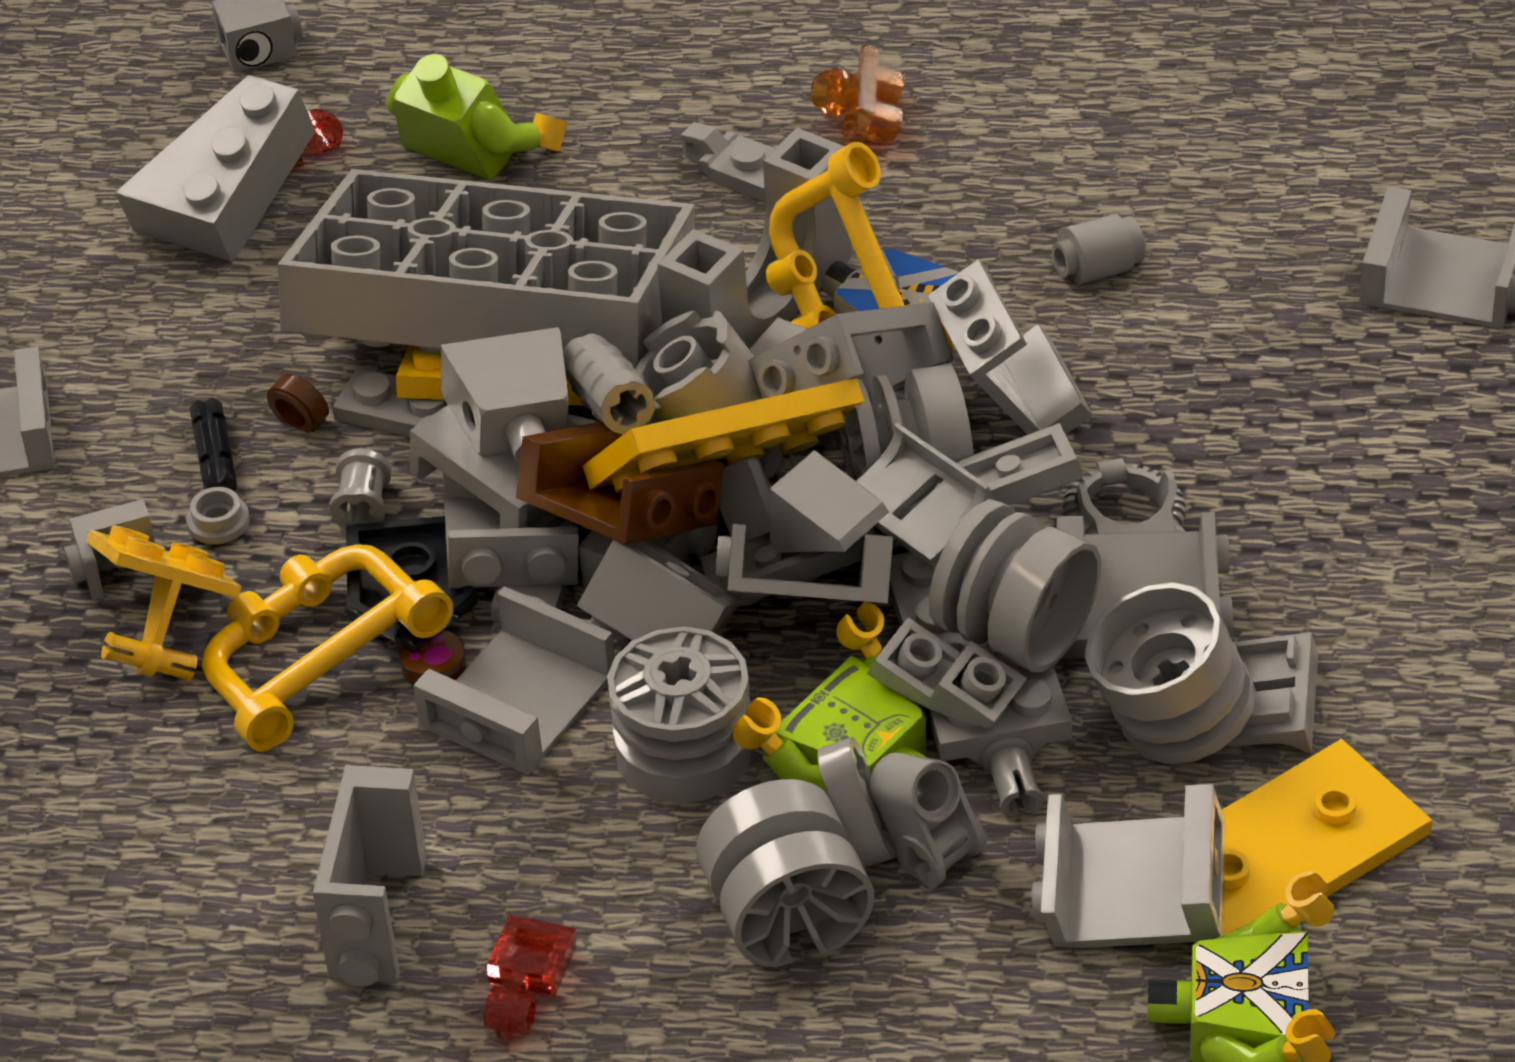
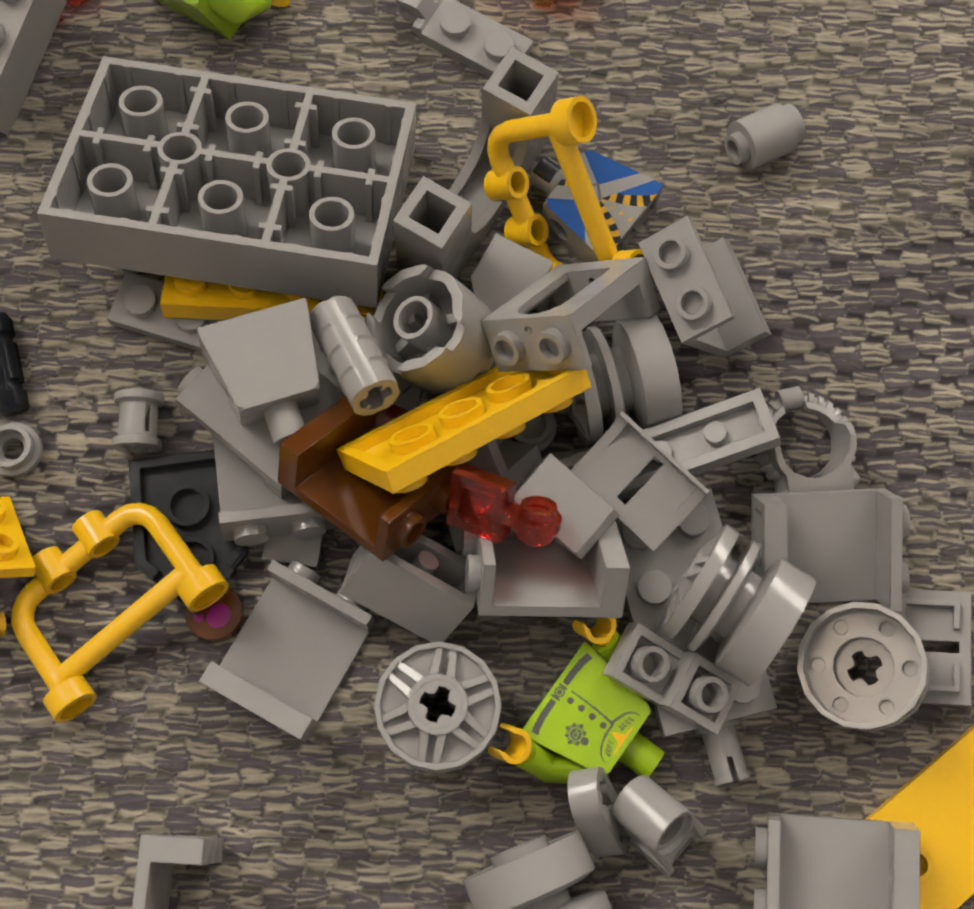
camera: 10 degrees left, 30 degrees up
(297, 403) = (75, 318): reddish brown tile -> none
(741, 492) = (486, 507): none -> clear red plate

